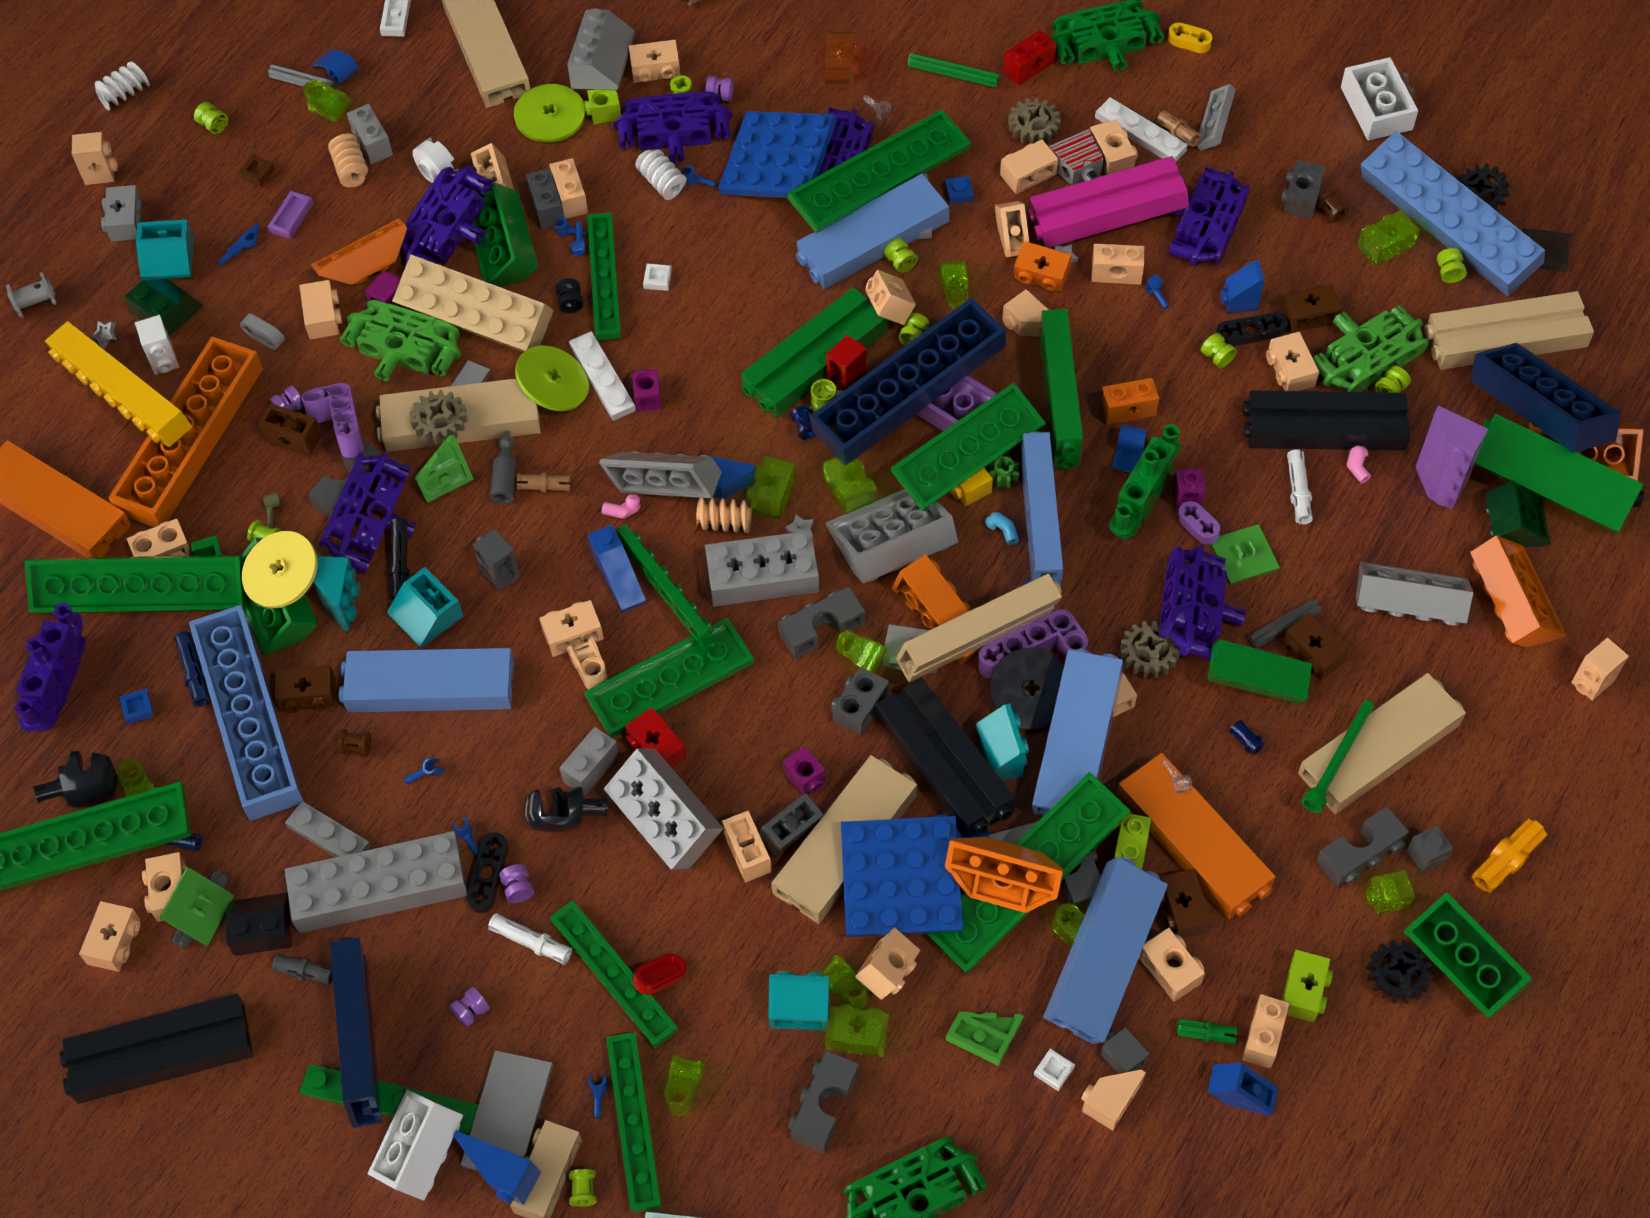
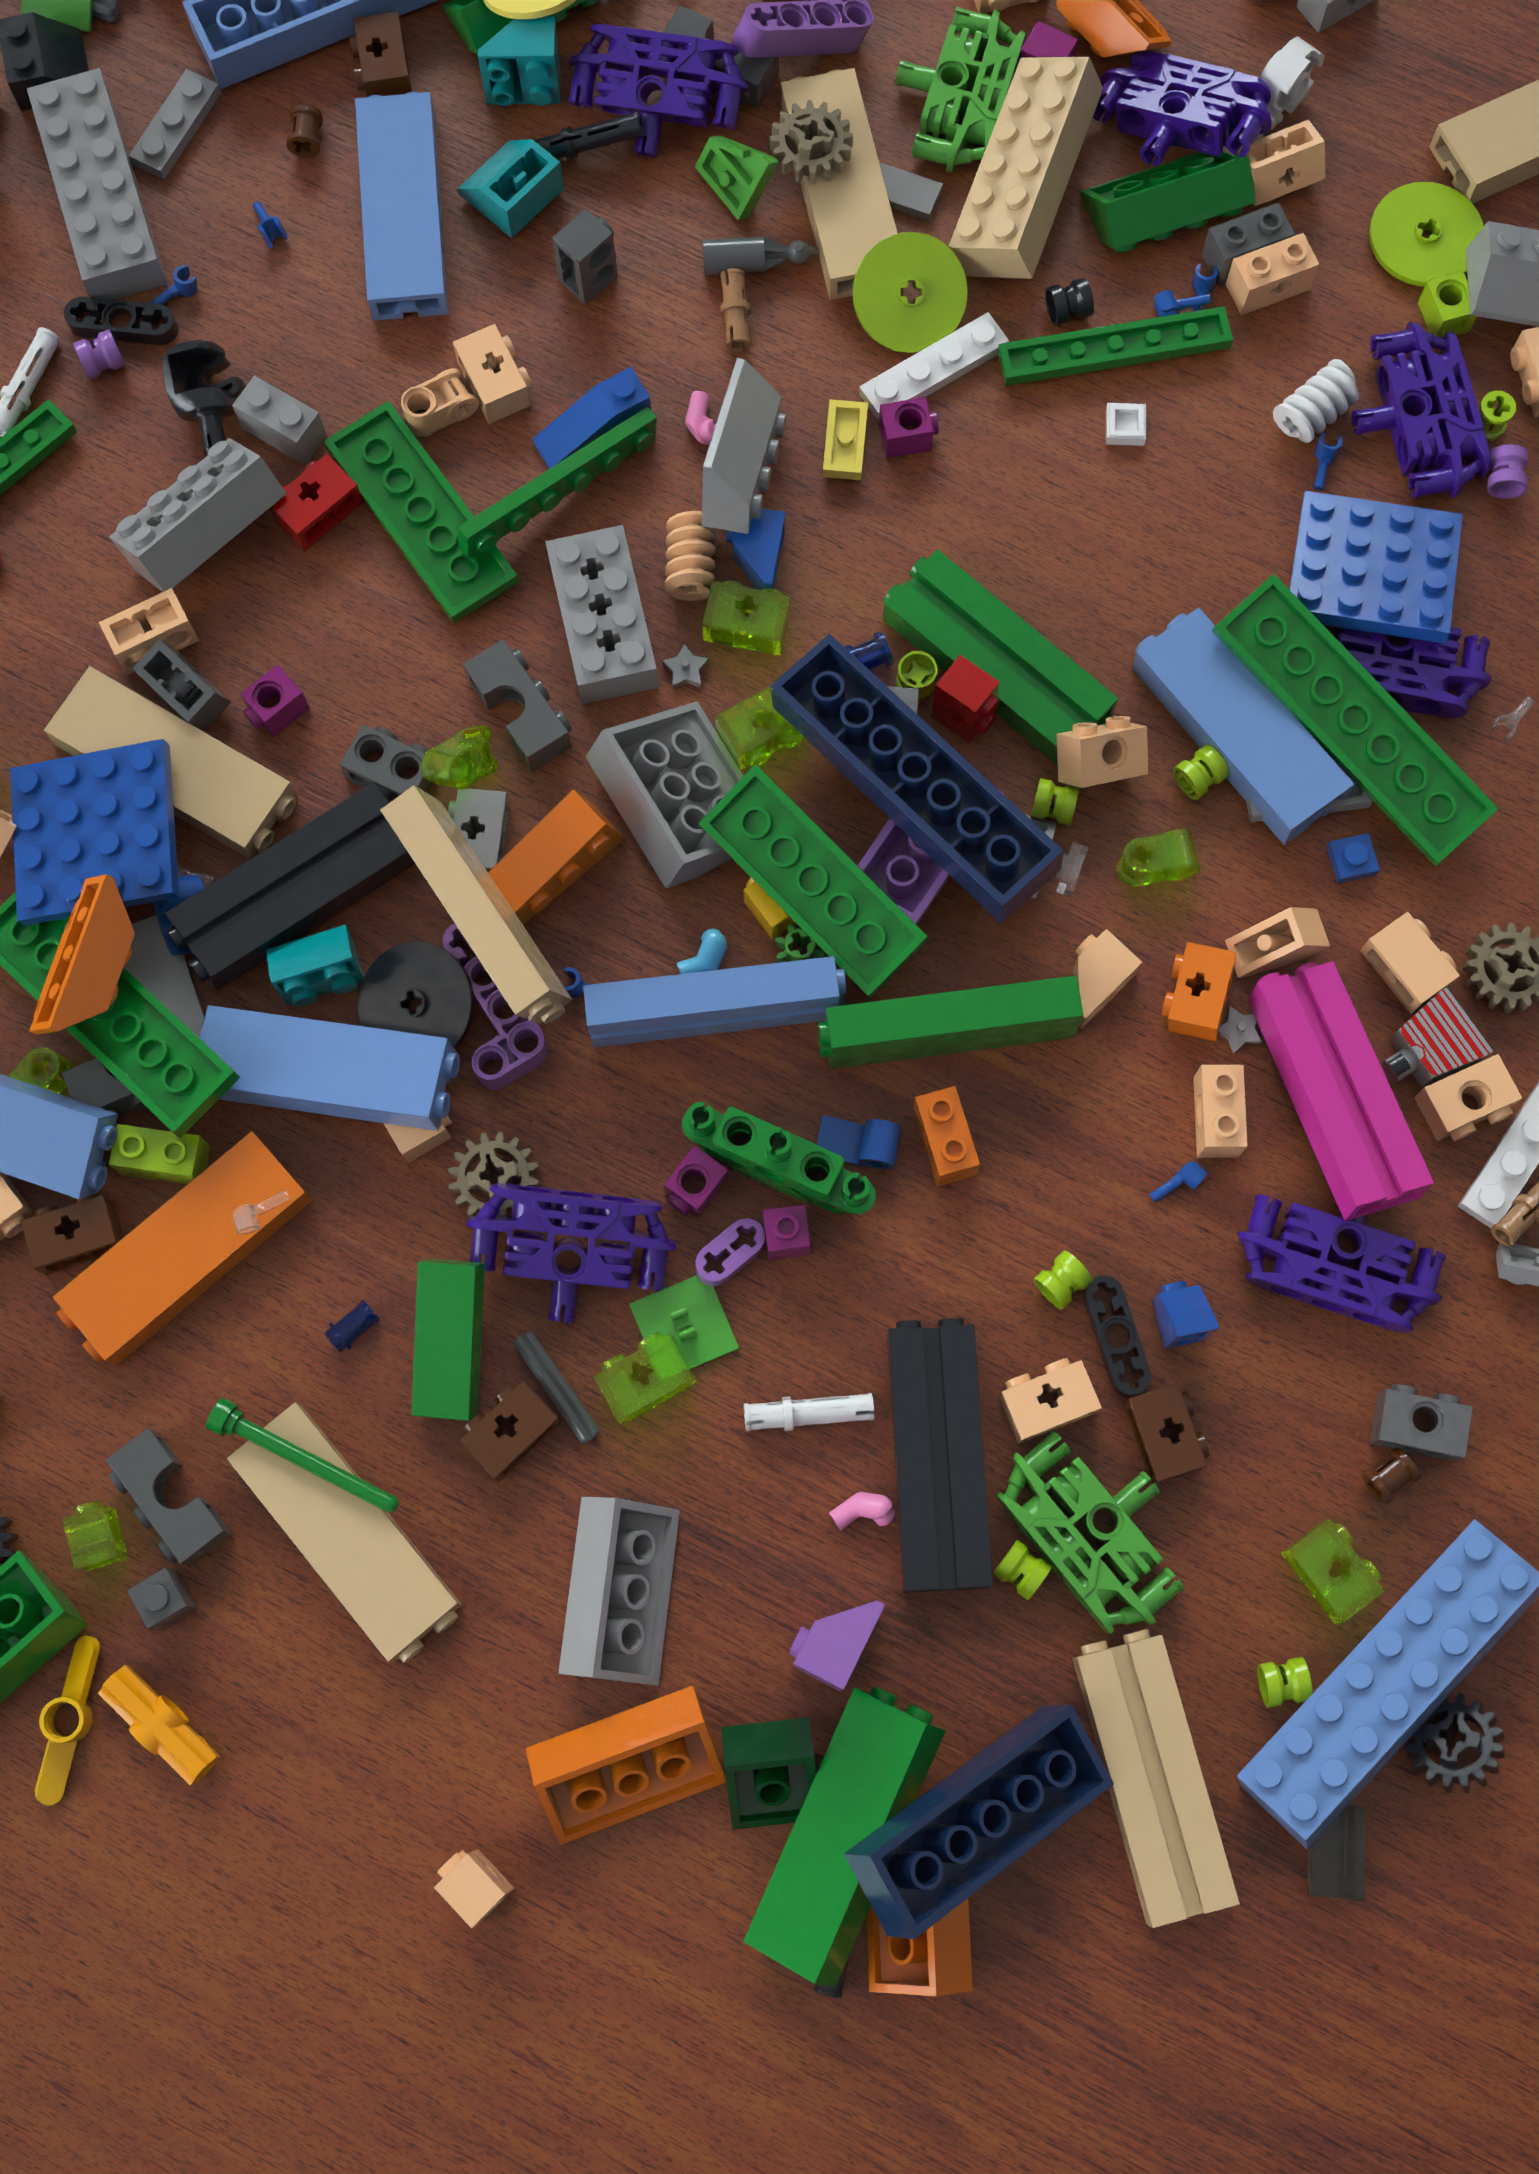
camera: 85 degrees right, 15 degrees up
(649, 425) = (845, 439): none -> light yellow plate
(1152, 527) = (701, 1165): none -> magenta brick
(1289, 575) = (633, 1398): none -> clear neon green brick
(1491, 910) = (61, 1749): none -> yellow piece

